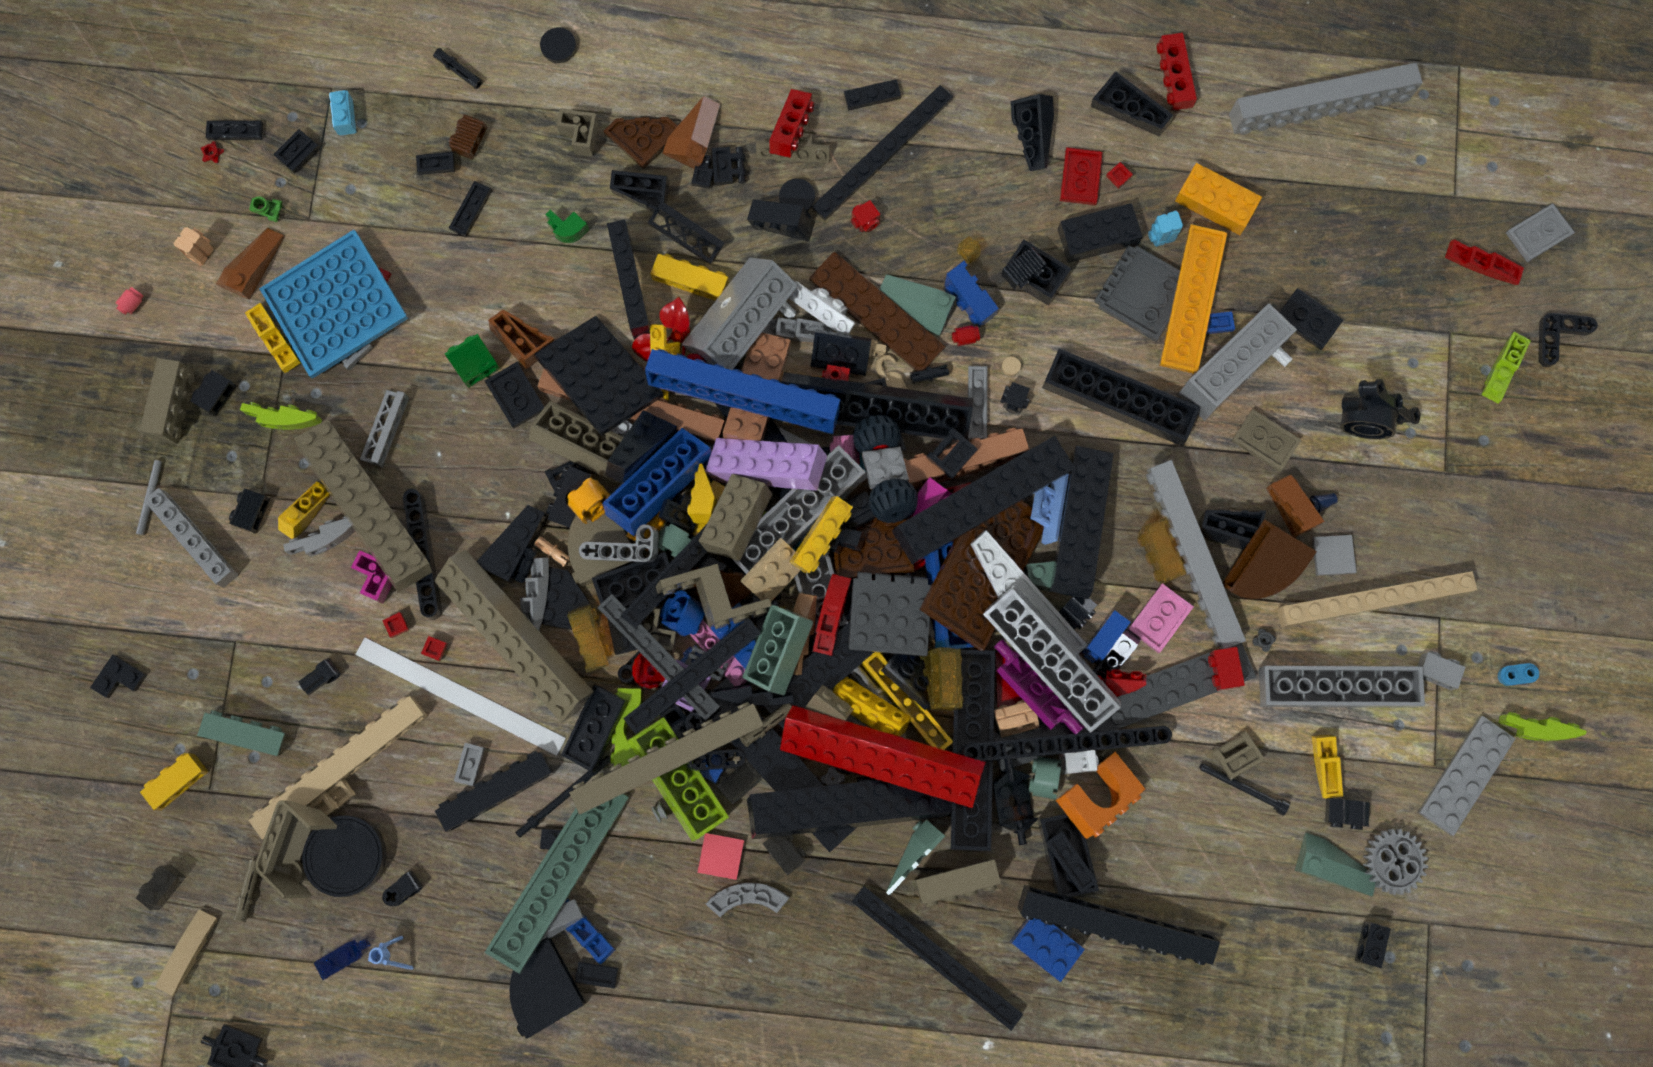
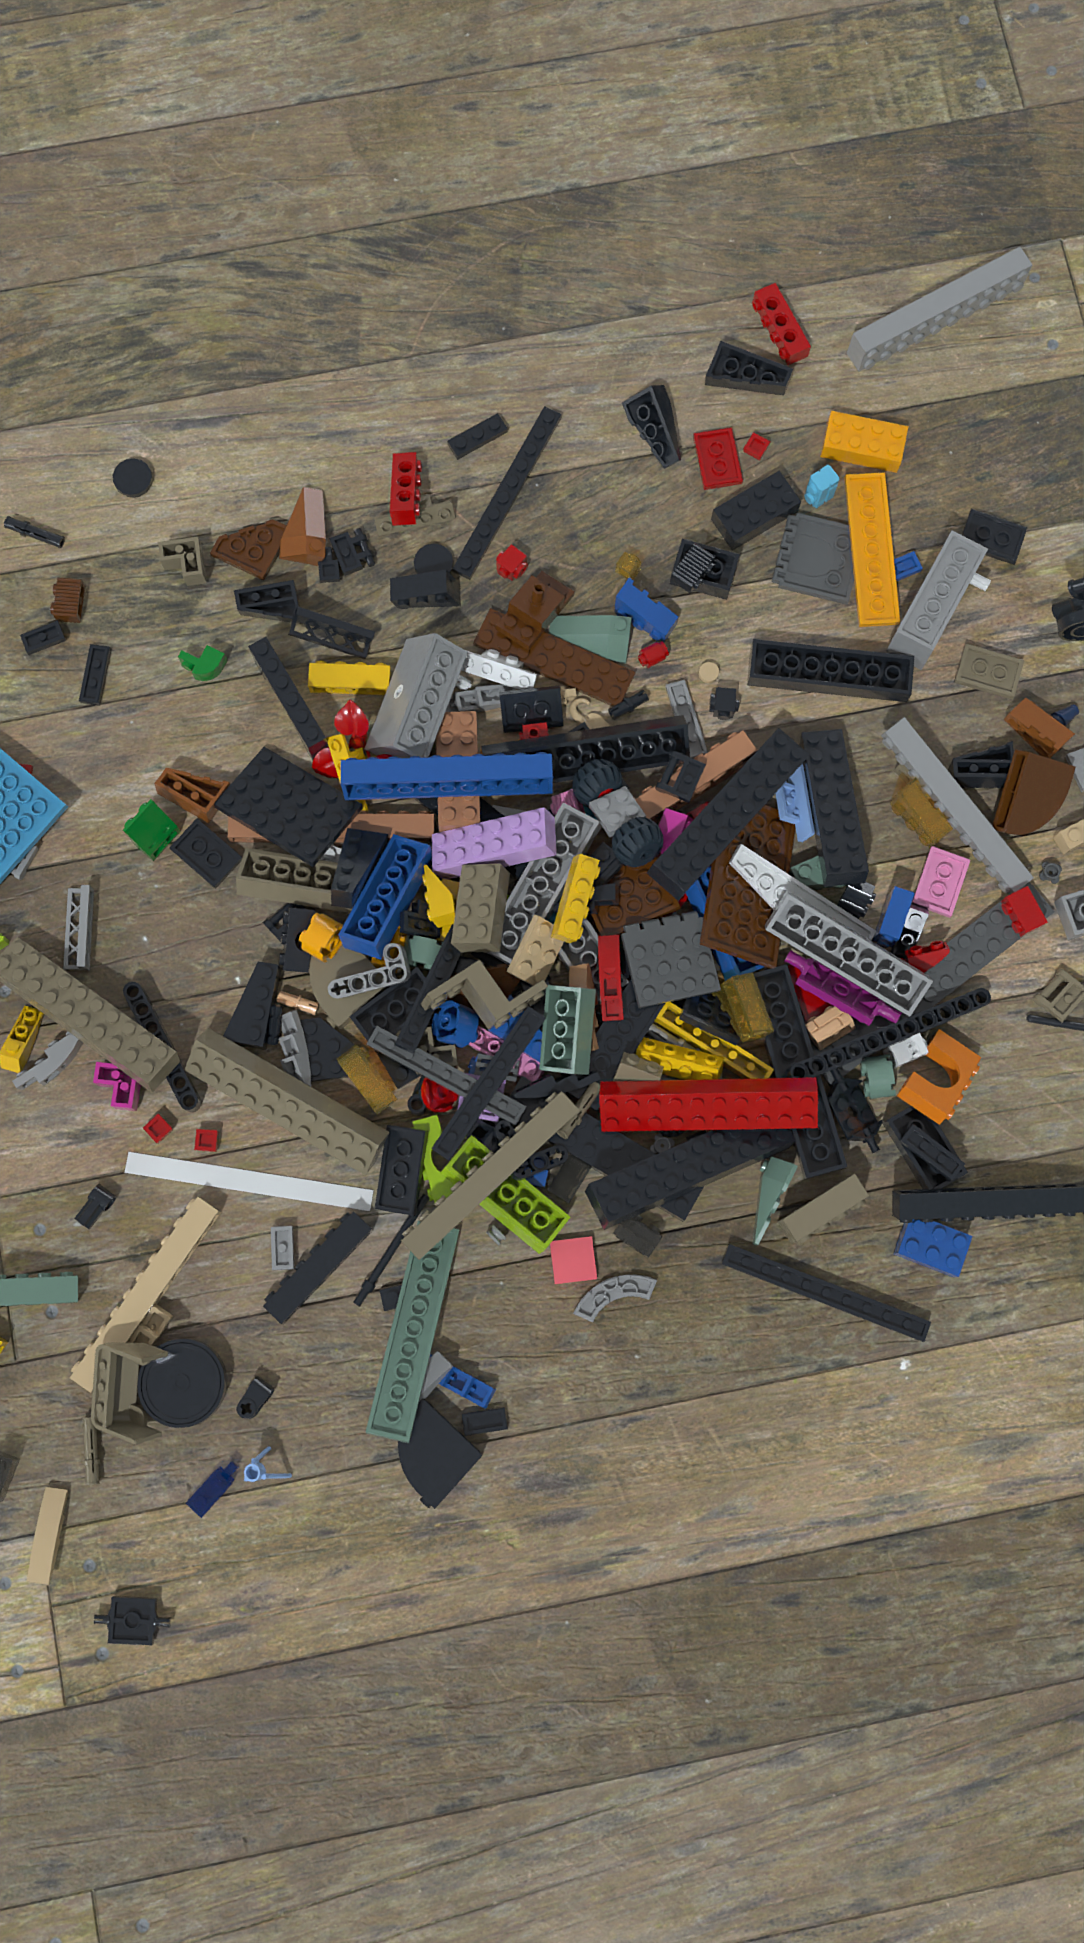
camera: 20 degrees left, 0 degrees up
(872, 263) = (534, 609): none -> reddish brown brick

